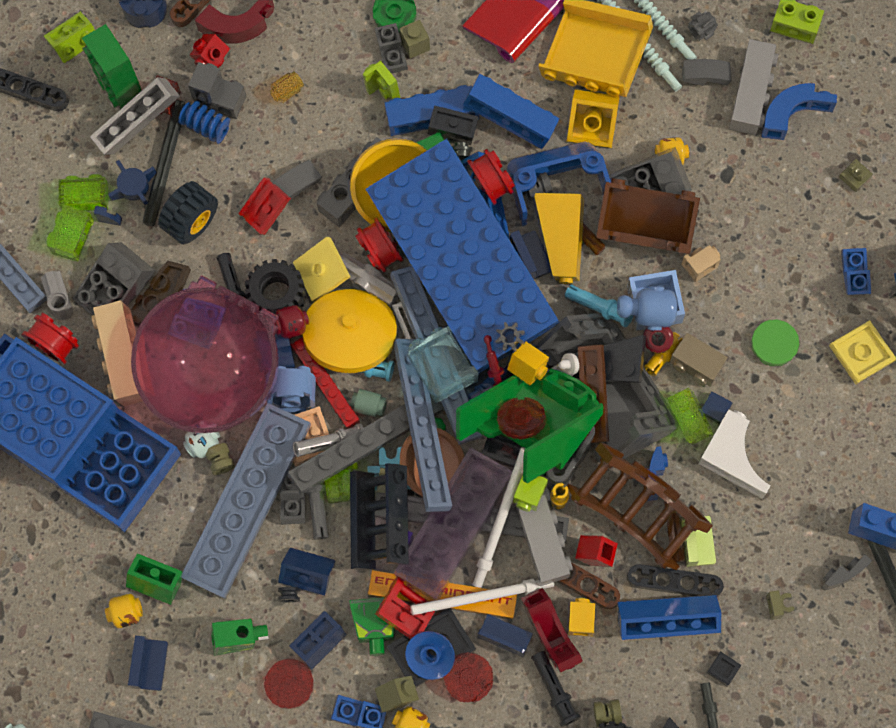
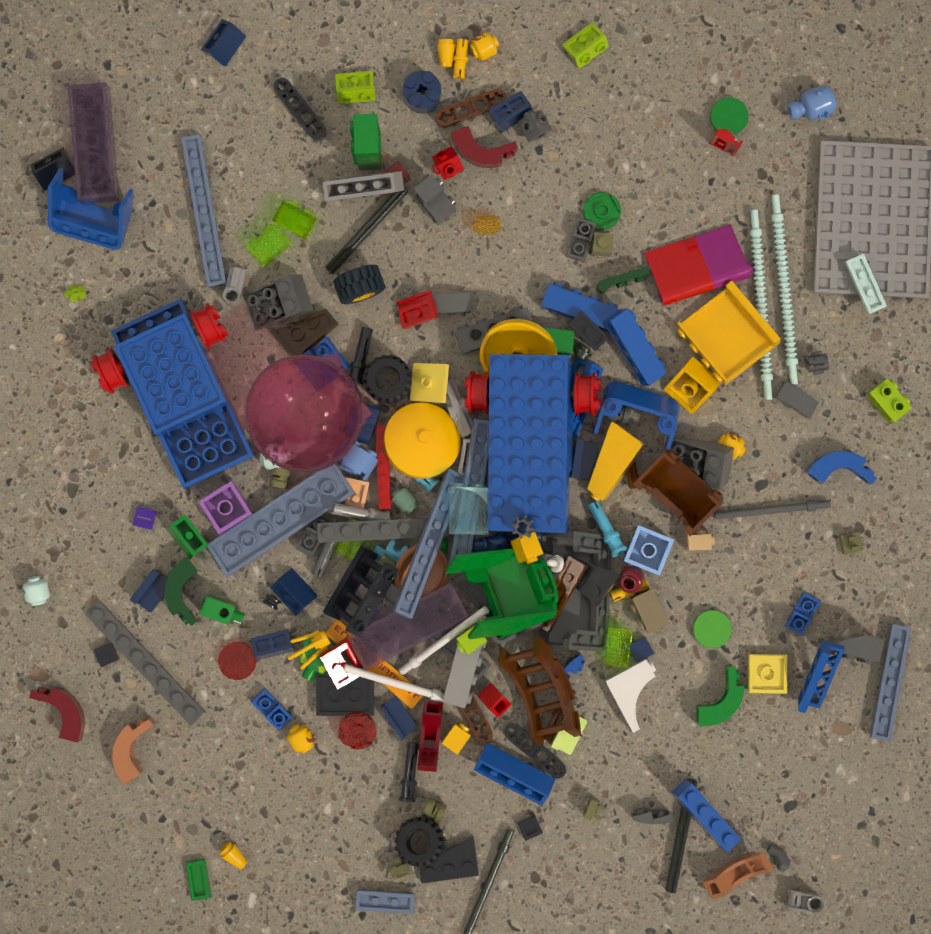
camera: 25 degrees right, 15 degrees up
(95, 590) = (144, 518): none -> dark purple tile
(104, 217) = (303, 248): dark blue tile -> none
(116, 342) = (254, 358): tan brick -> none
(124, 610) = (155, 545): yellow head -> none
(132, 184) = (333, 235): dark blue piece -> none
(169, 629) = (173, 590): none -> dark green arch
(178, 521) = (226, 507): none -> medium lavender brick
(204, 122) = (412, 217): blue piece -> none
(291, 321) = (383, 413): dark red head -> none
(365, 599) = (319, 641): none -> yellow plant
(379, 78) = (558, 265): lime bracket -> none
(396, 694) = (303, 714): olive brick -> none
(424, 663) = (337, 709): blue dish -> none
(456, 60) = (622, 280): none -> dark green plate
(495, 371) = (501, 538): dark red piece -> none
(521, 418) = (498, 582): clear red tile -> none
(559, 496) = (489, 652): yellow pin -> none
(651, 307) = (636, 560): medium blue piece -> none
(753, 86) = (822, 432): light grey brick -> none
(789, 164) = (810, 506): none -> dark grey bar
(844, 406) = (725, 707): none -> green arch

